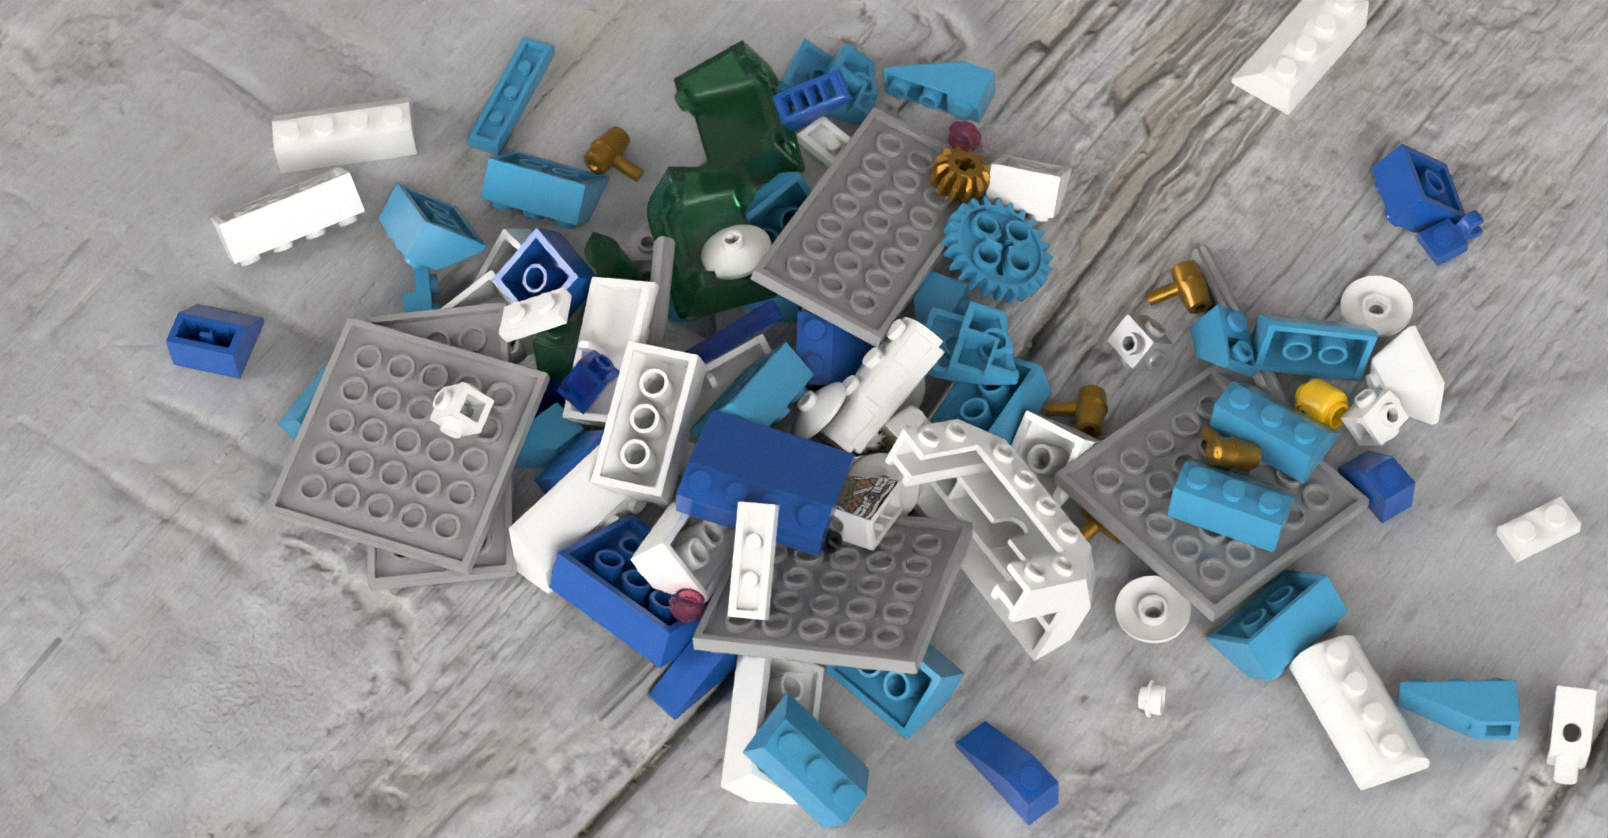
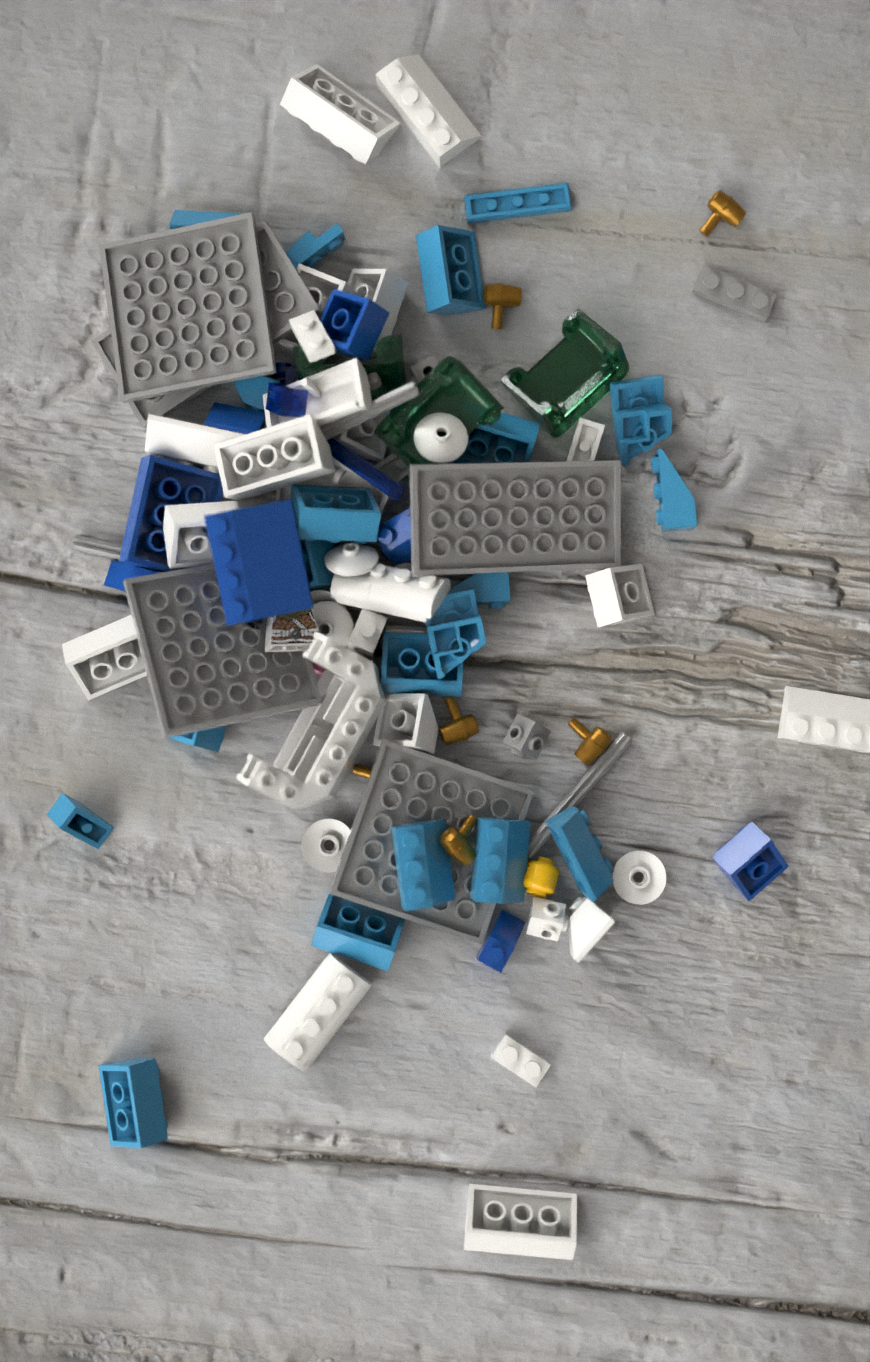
camera: 60 degrees right, 30 degrees up
(213, 340) = (220, 126): blue slope -> none
(428, 229) = (366, 219): dark azure slope -> none
(461, 410) = (210, 332): white brick -> none
(687, 605) = (160, 564): clear pink plate -> none
(753, 560) = (187, 591): white plate -> none
(796, 95) = (595, 401): blue slope -> none
(809, 763) = (98, 694): dark azure slope -> none
(960, 175) = (600, 551): pearl gold gear -> none
(964, 135) = (639, 529): clear pink plate -> none
(997, 250) = (539, 585): dark azure gear -> none
(1011, 771) = (169, 812): blue slope -> none
(1152, 698) = (265, 876): white plate -> none
(1225, 340) = (550, 795): dark azure slope -> none
(1448, 240) = (722, 896): blue plate -> none
(1470, 707) = (360, 1083): dark azure slope -> none
(1570, 732) = (368, 1152): white torso -> none

